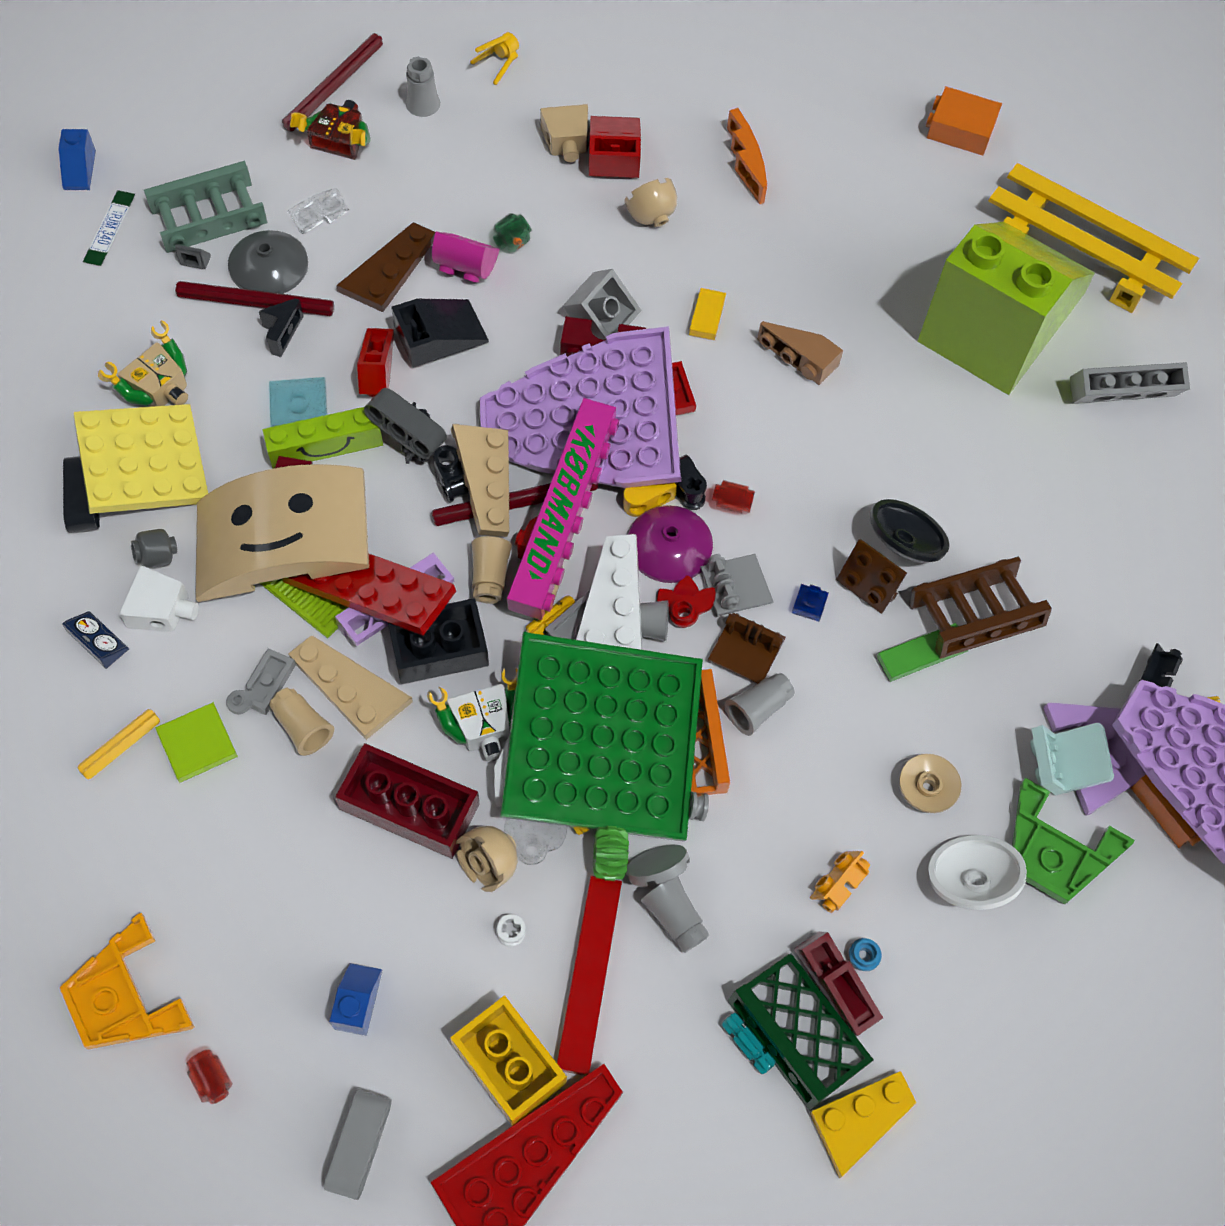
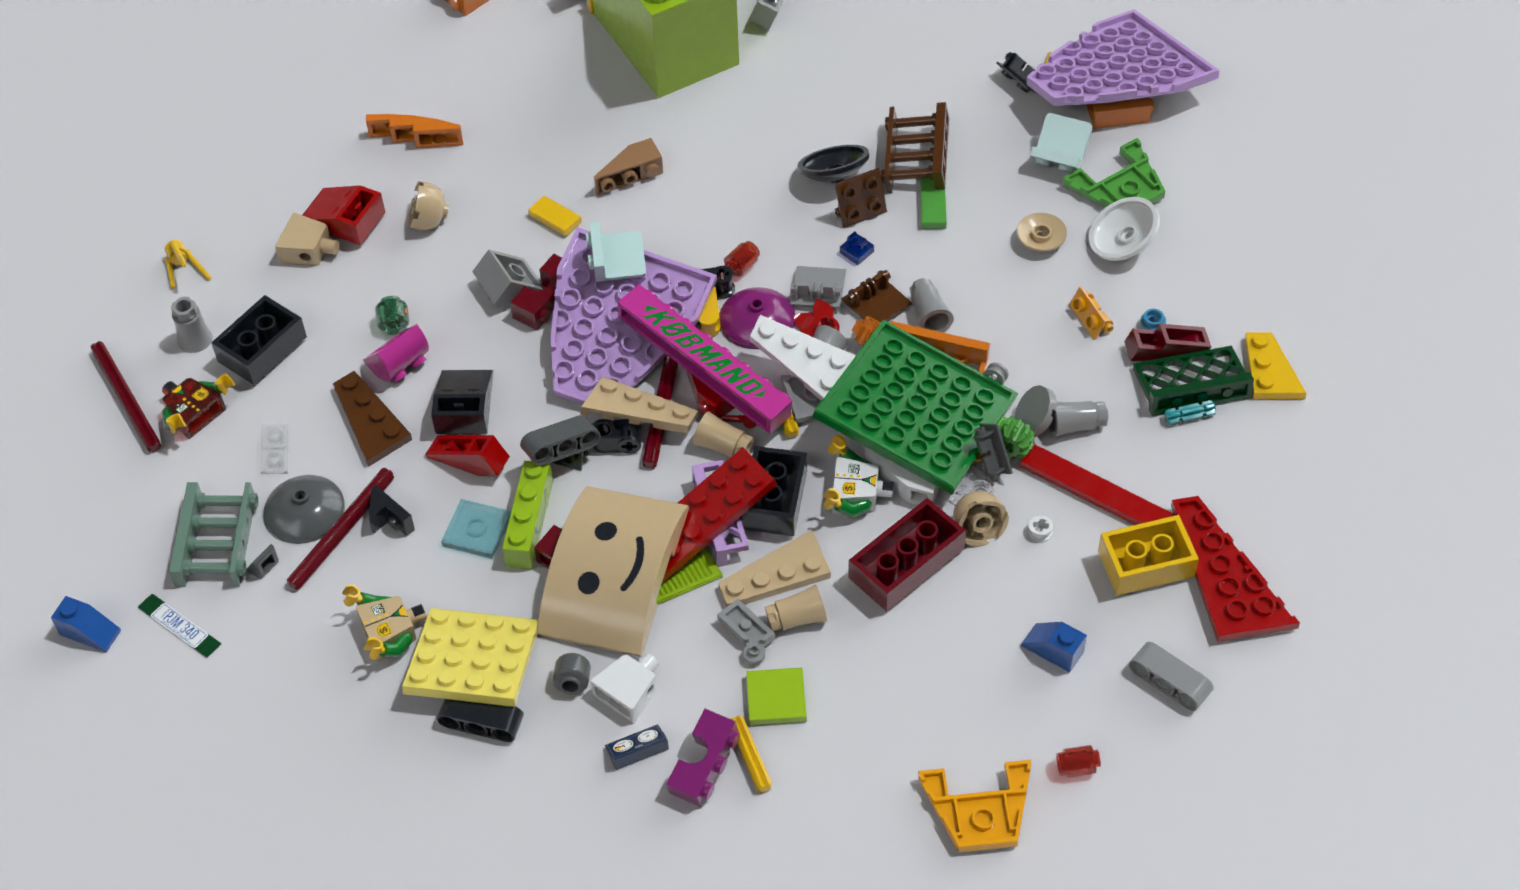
camera: 60 degrees left, 10 degrees down
(113, 702) = (695, 780): none -> magenta arch
(429, 144) = (259, 339): none -> black brick
(571, 847) = (989, 439): none -> dark grey hinge
(646, 370) = (615, 254): none -> light aqua bracket
(694, 648) = (864, 329): none -> orange gear
(1124, 765) = (1034, 122): lavender wing -> none

